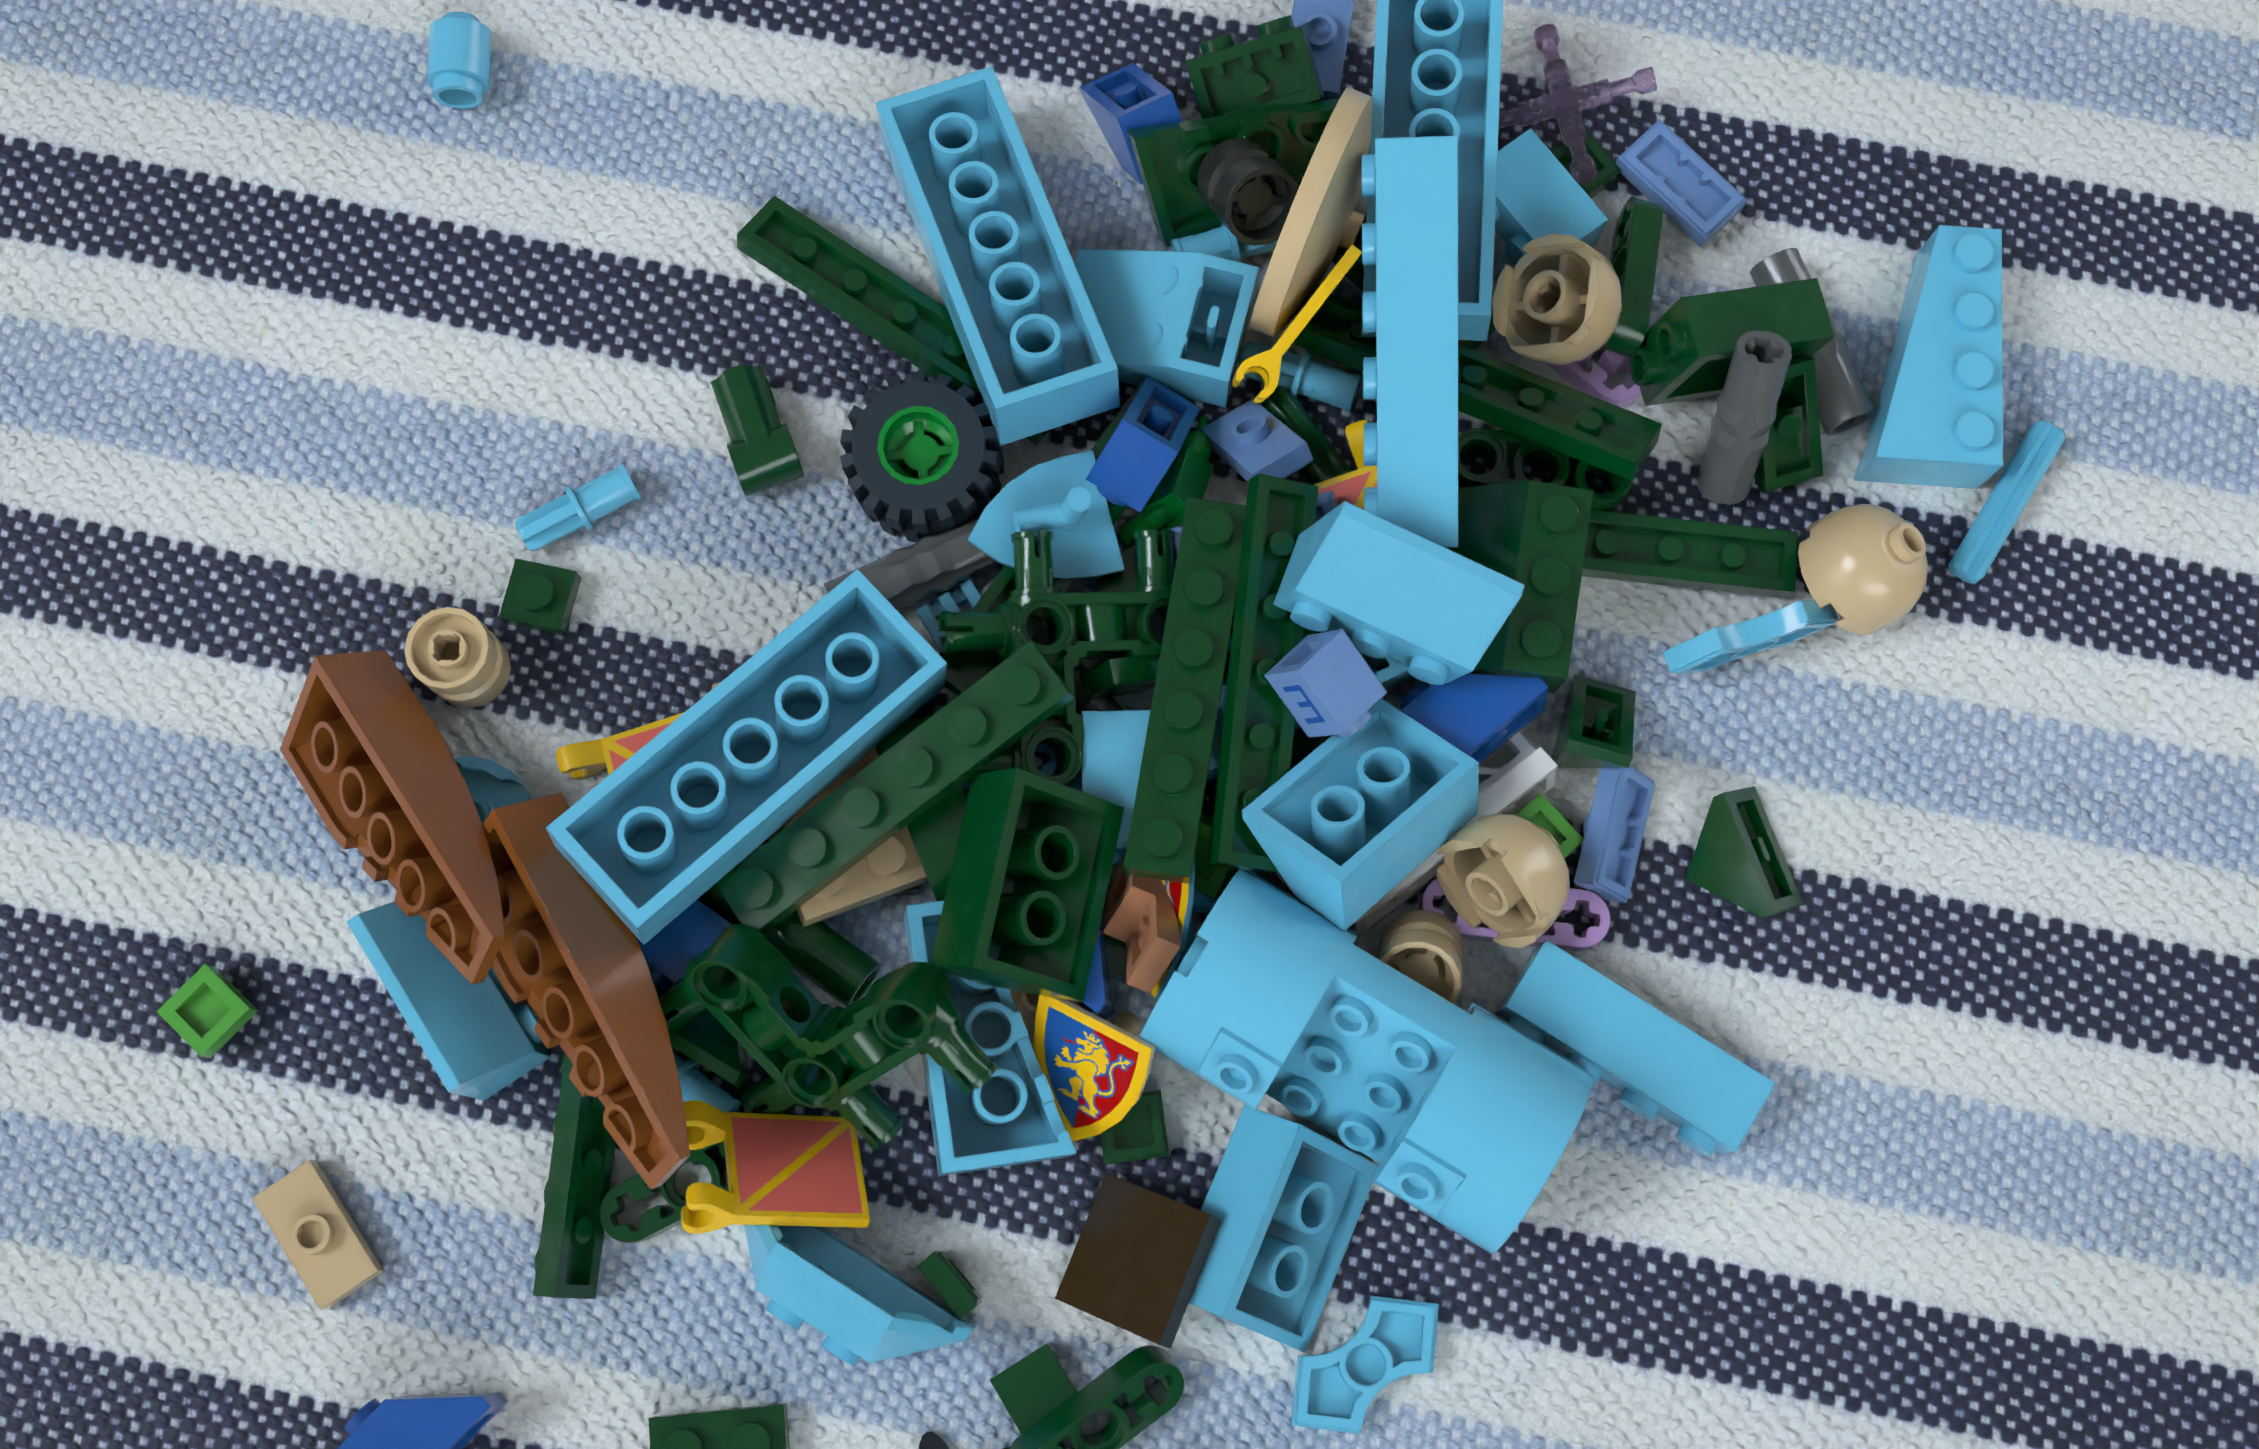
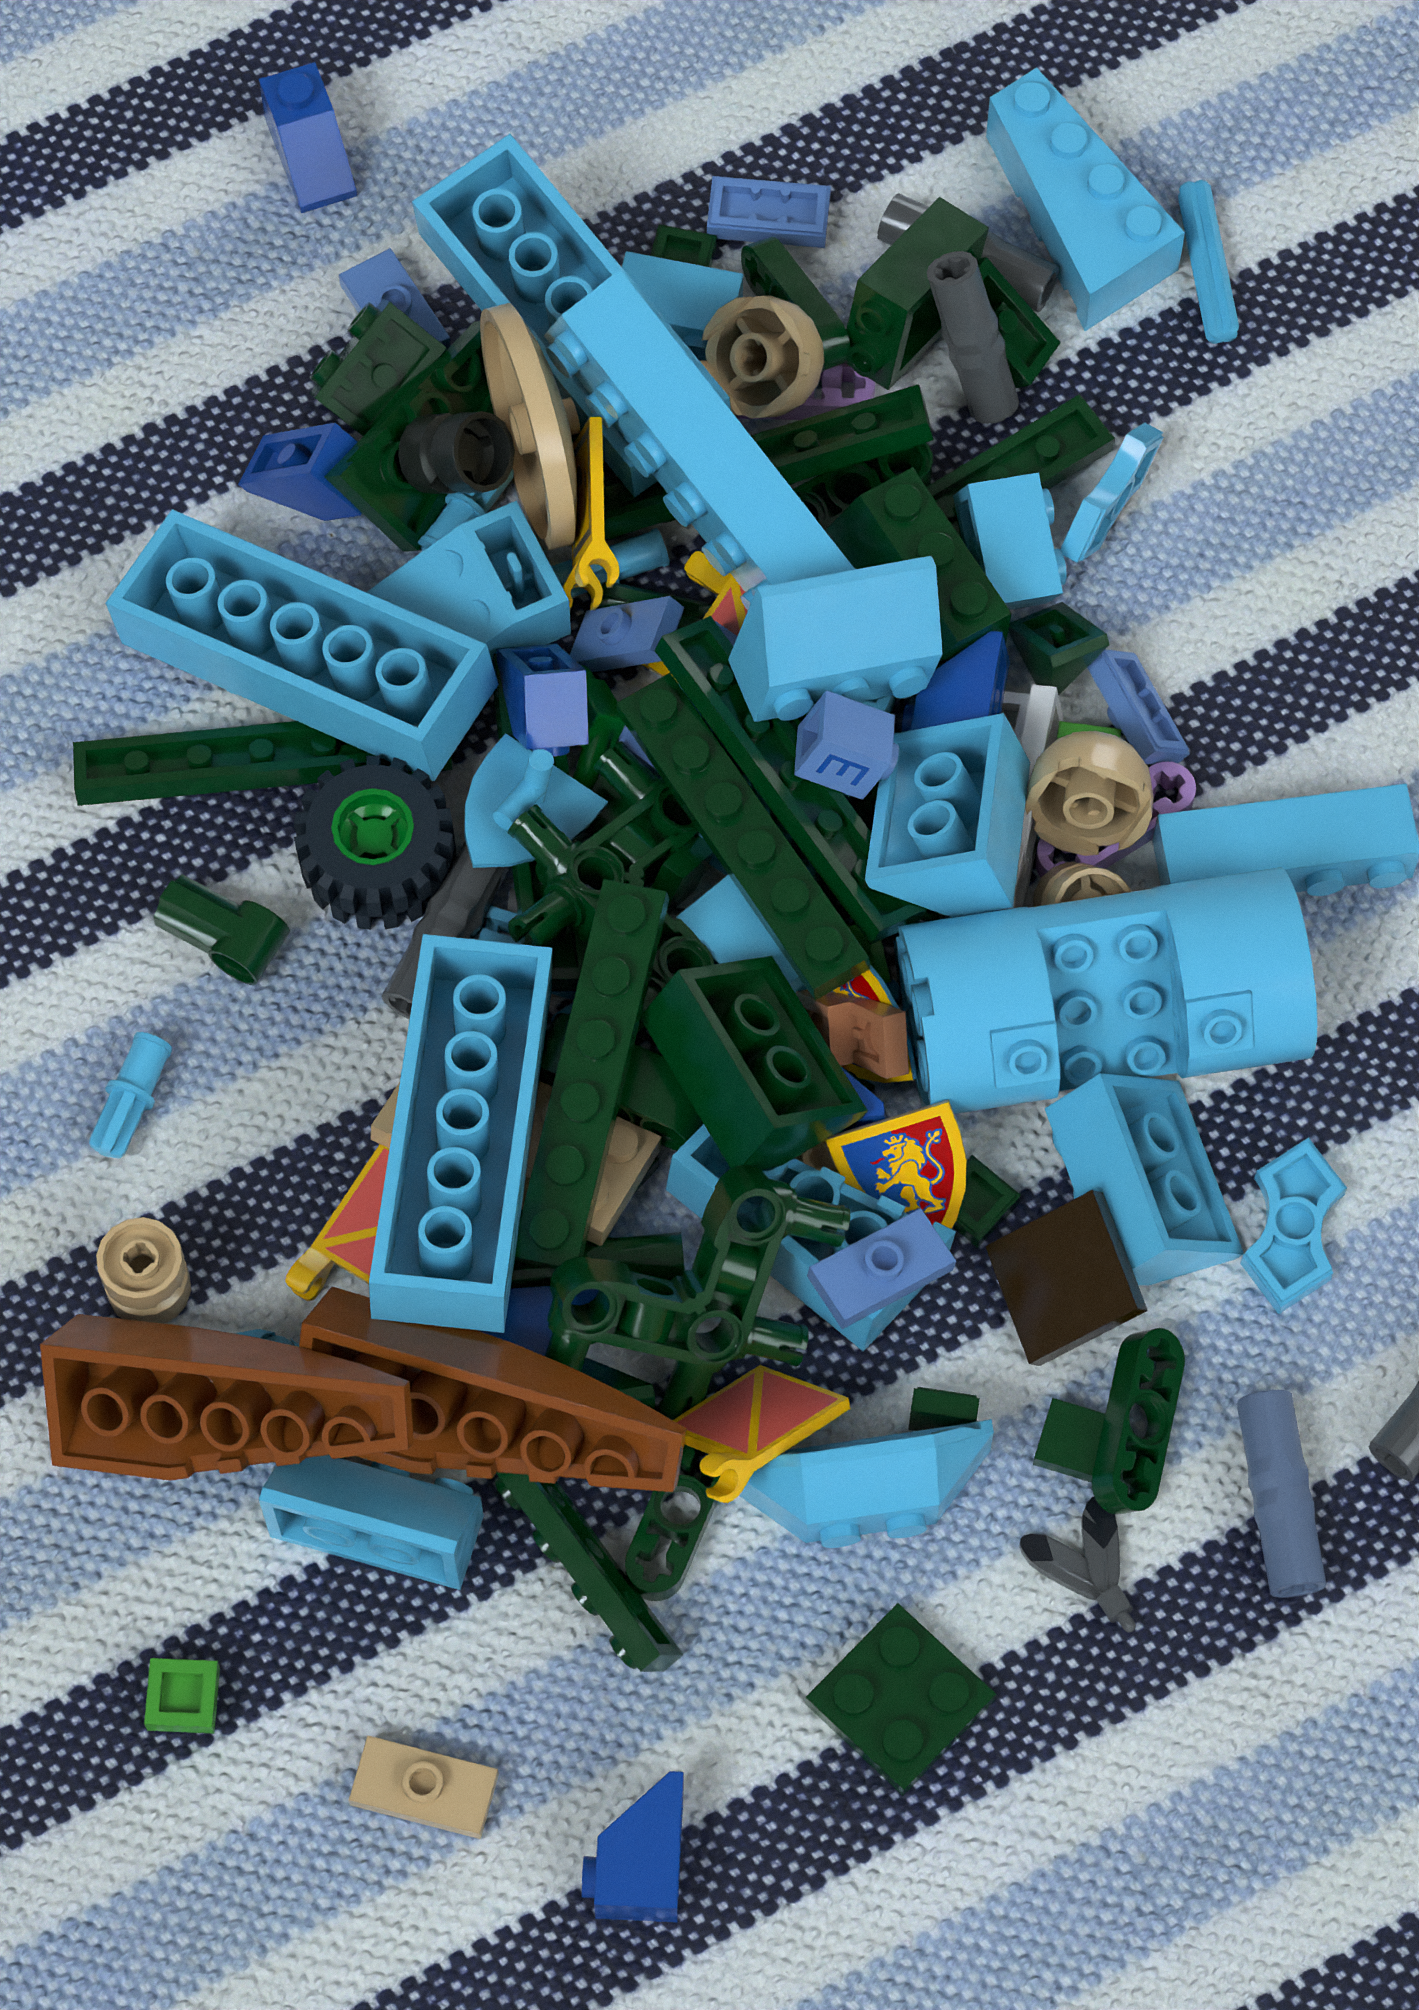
camera: 40 degrees left, 10 degrees down
(540, 597) = (159, 1185): dark green plate -> none
(983, 1138) = (881, 1268): none -> medium blue plate
(1567, 101) = (633, 214): clear purple piece -> none
(1629, 613) = (1011, 538): none -> medium azure brick
(1742, 857) = (1241, 656): dark green slope -> none
(1865, 566) = (1150, 376): tan cylinder -> none

